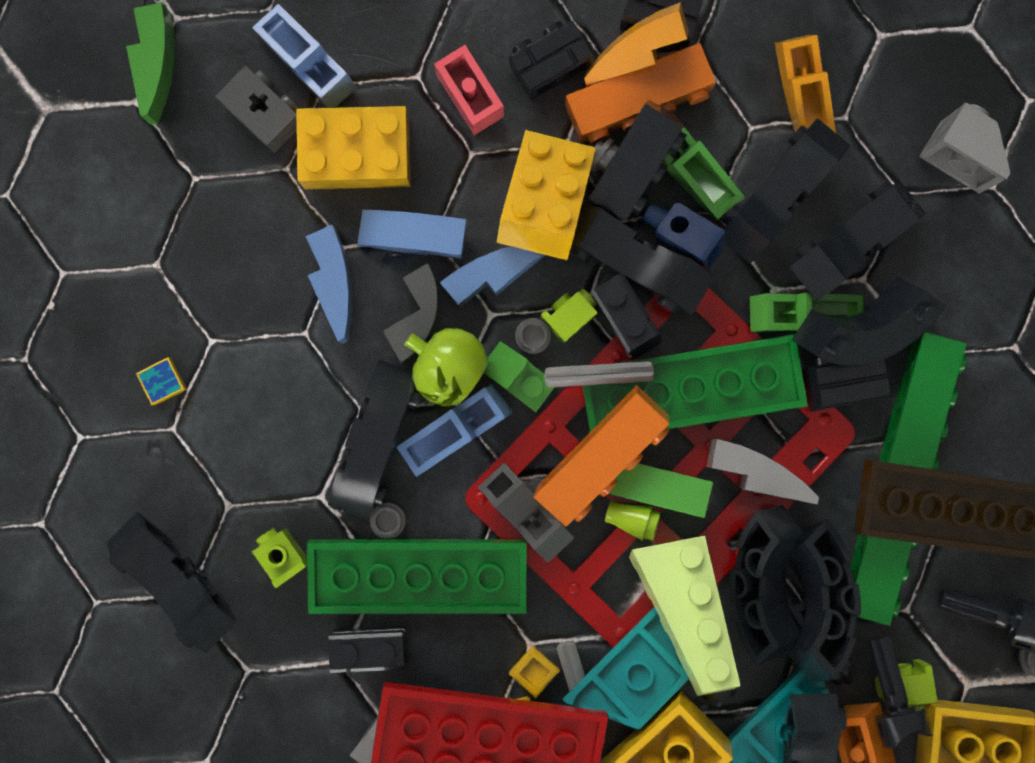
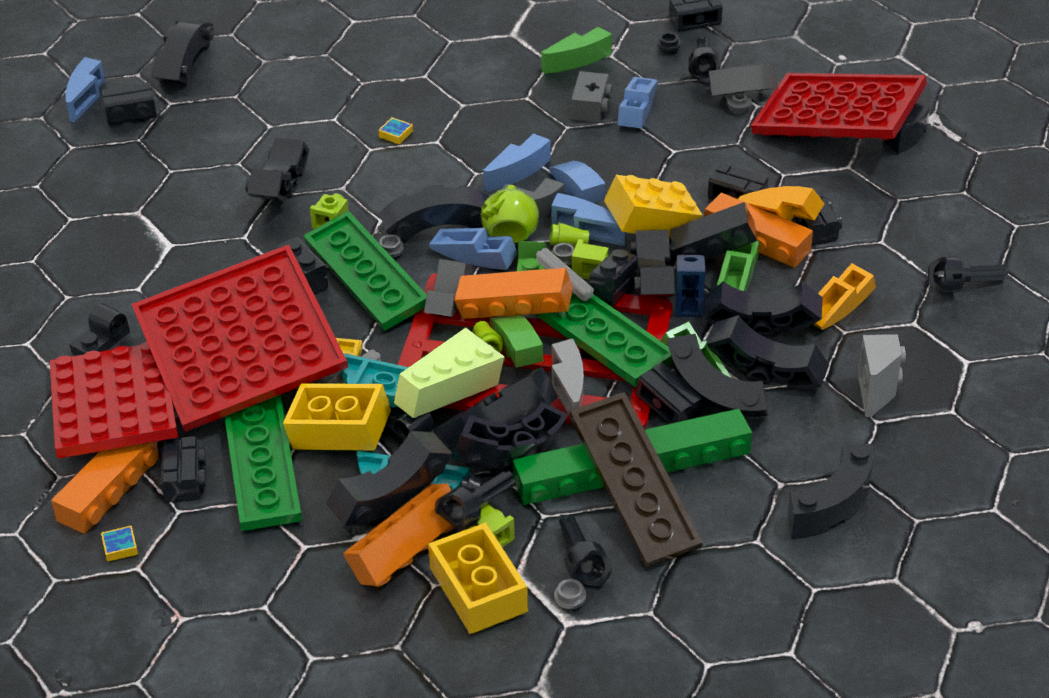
camera: 60 degrees right, 45 degrees down
(353, 147) = (604, 136): yellow brick -> none
(469, 90) = (684, 158): coral brick -> none
(505, 312) = (567, 234): none -> lime cone

